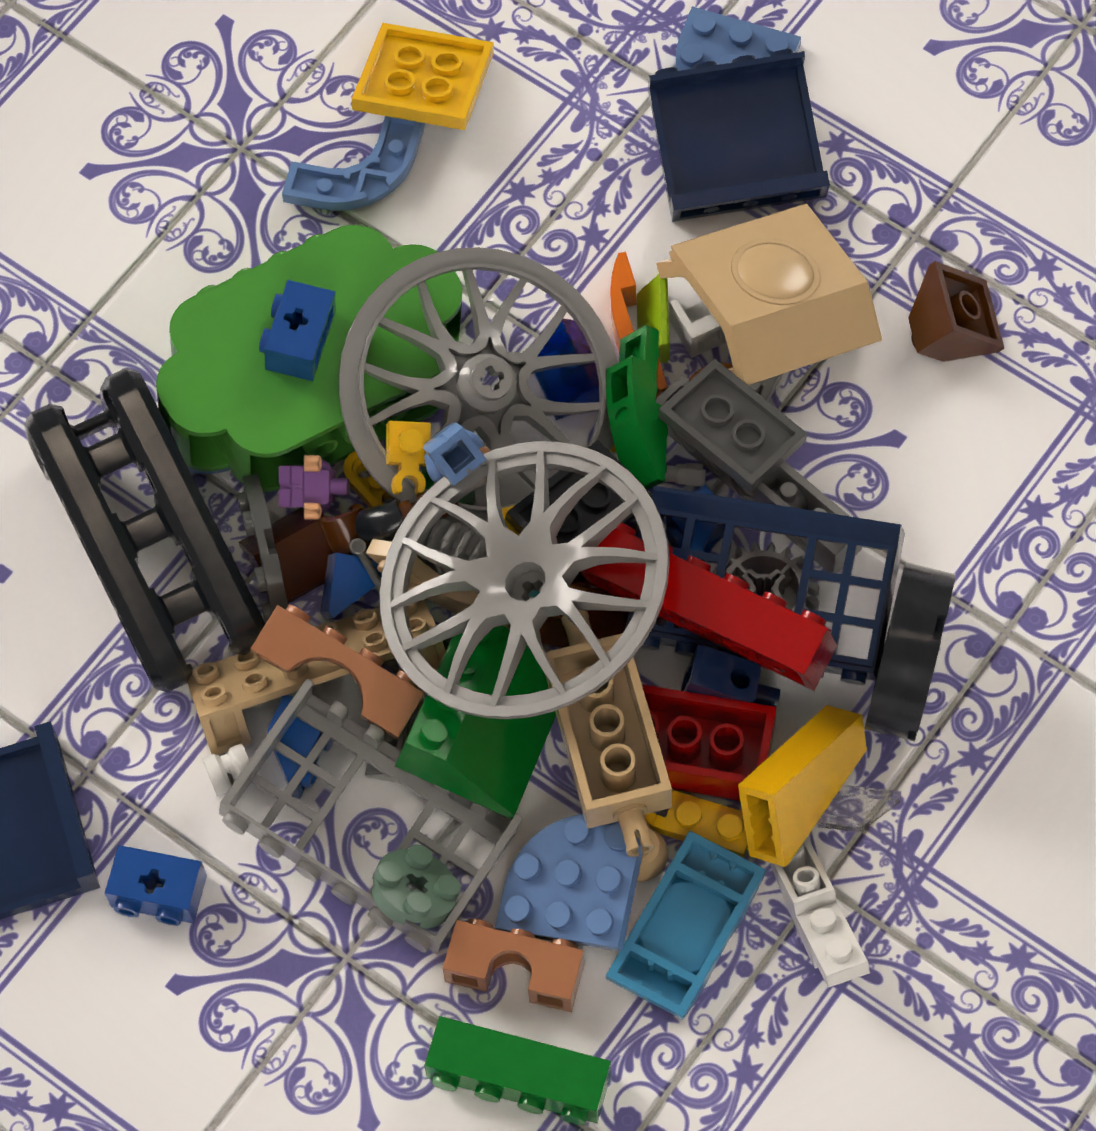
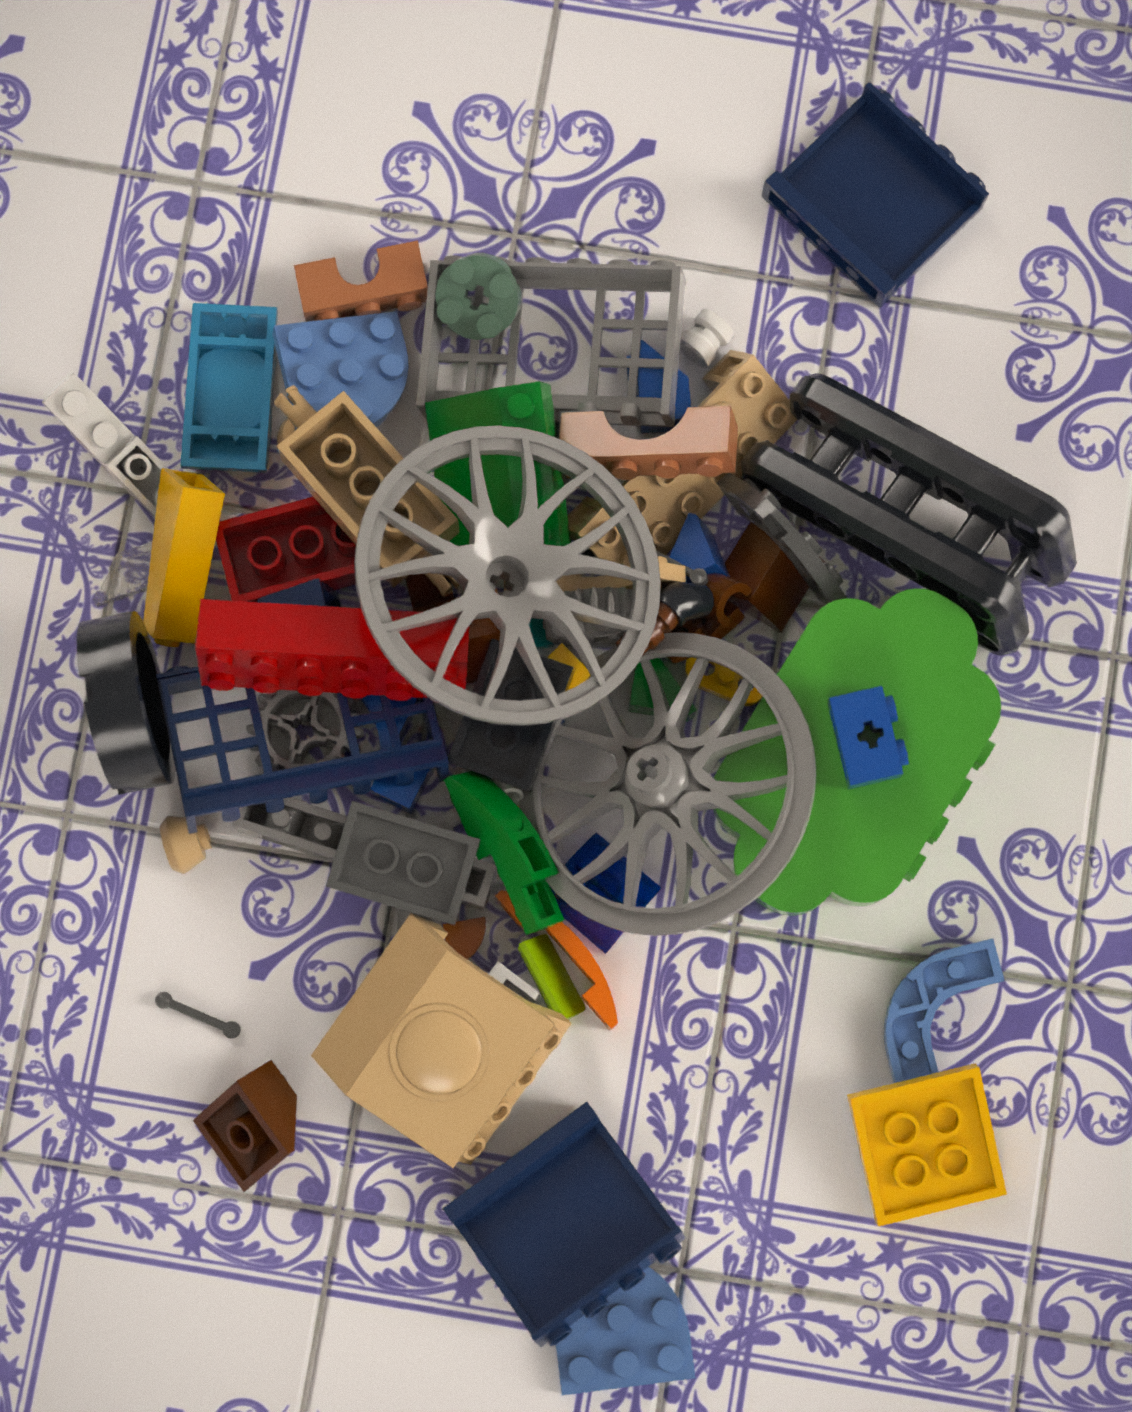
camera: 145 degrees right, 15 degrees up
(140, 870) = (696, 223): blue brick -> none
(310, 486) = (778, 621): medium lavender piece -> none
(406, 451) = (695, 668): yellow plate -> none
(453, 453) = (645, 677): medium blue piece -> none
(518, 1071) = (313, 197): green brick -> none
(708, 819) = (257, 491): yellow plate -> none
(916, 547) = (181, 848): none -> tan cone
(940, 402) = (230, 1029): none -> dark grey hinge

